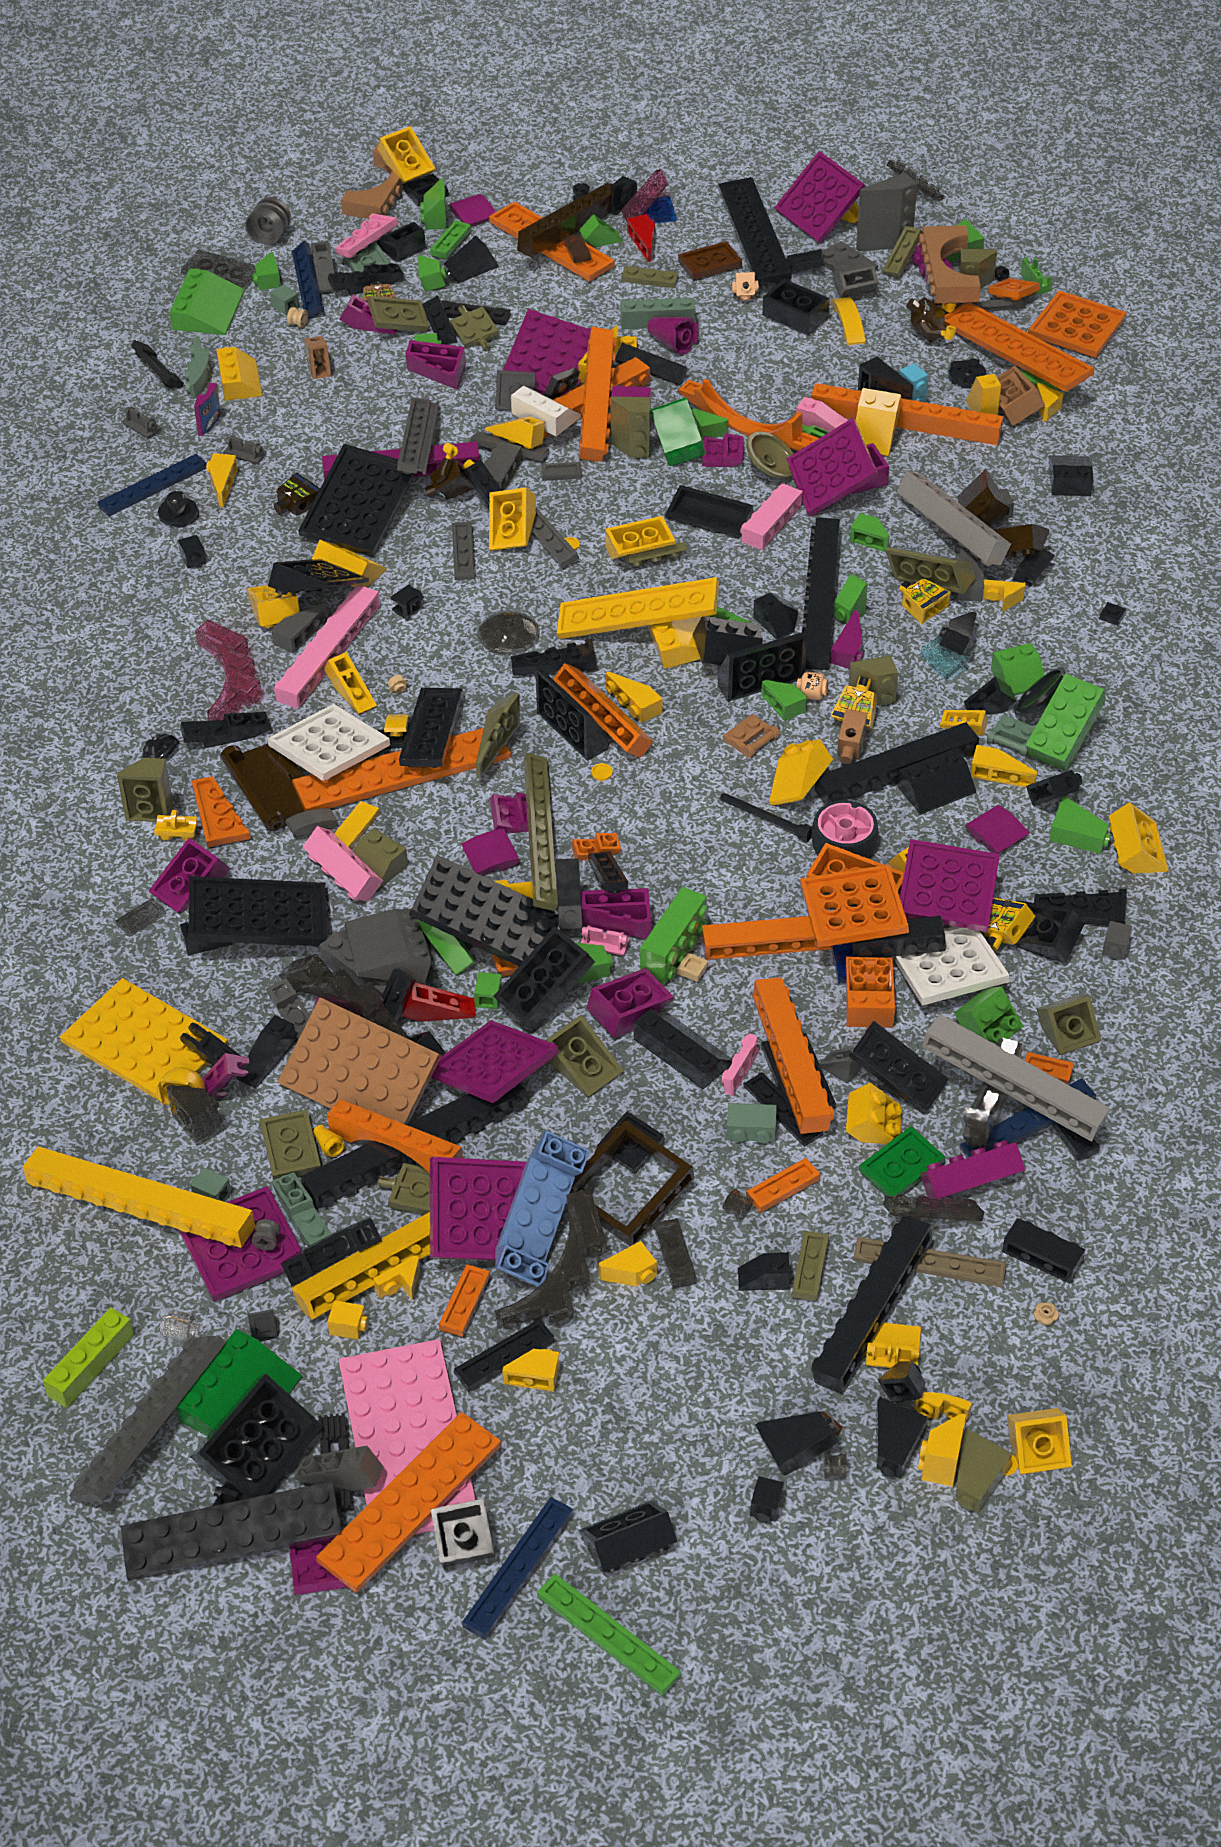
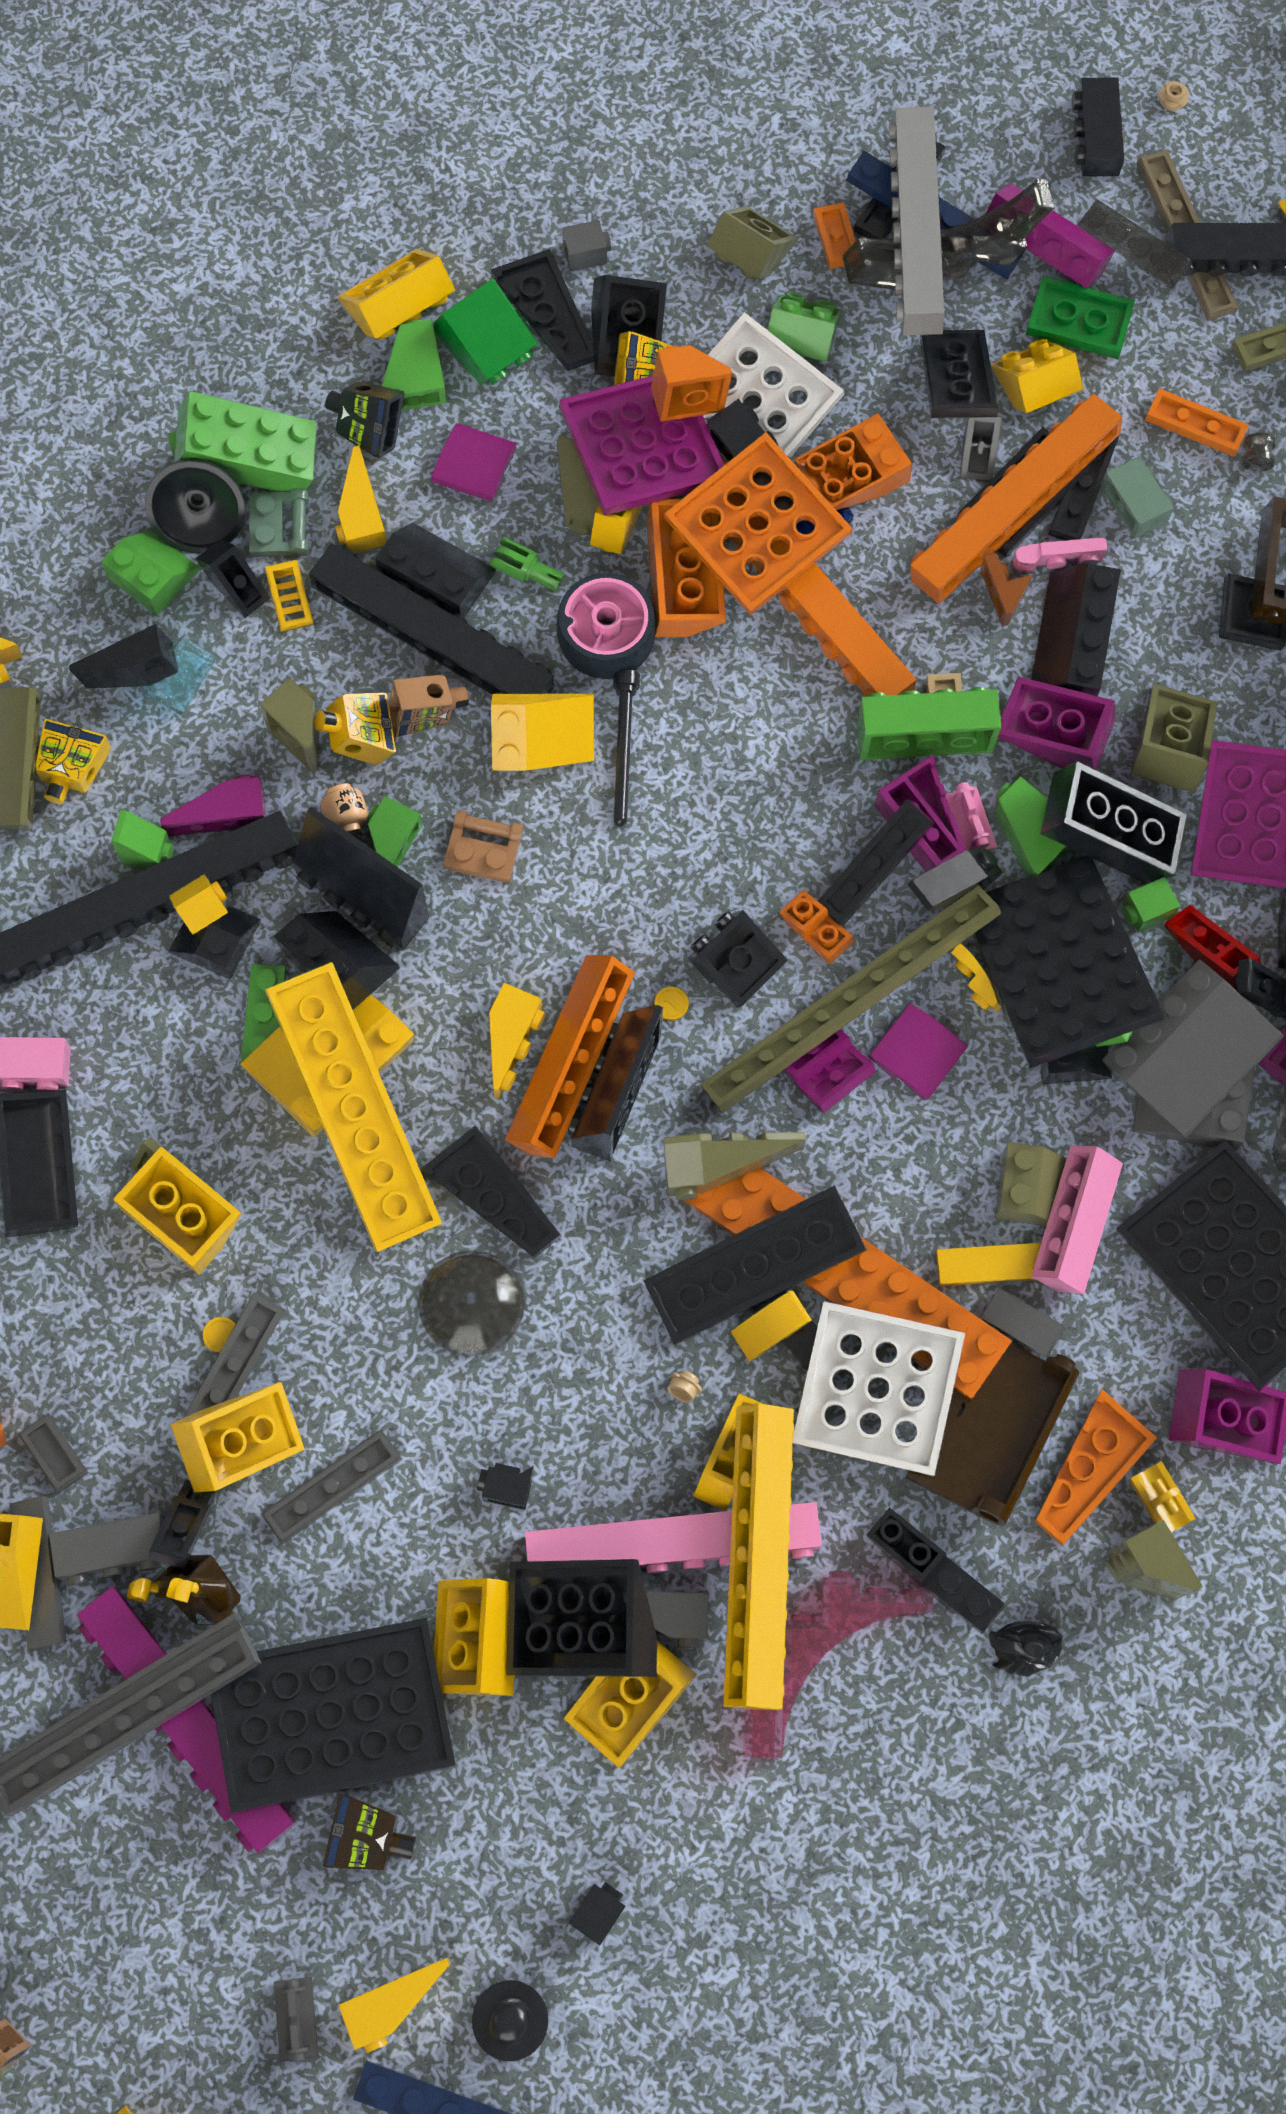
camera: 125 degrees left, 25 degrees up
(289, 651) = (759, 1558): none -> yellow brick
(604, 800) = (736, 957): none -> black plate
(736, 1022) = (1004, 593): none -> dark orange slope
(797, 603) = (199, 903): none -> yellow brick
(911, 820) = (524, 564): none -> bright green arm
(967, 900) = (688, 383): none -> orange slope
(1080, 864) = (485, 333): none -> green slope

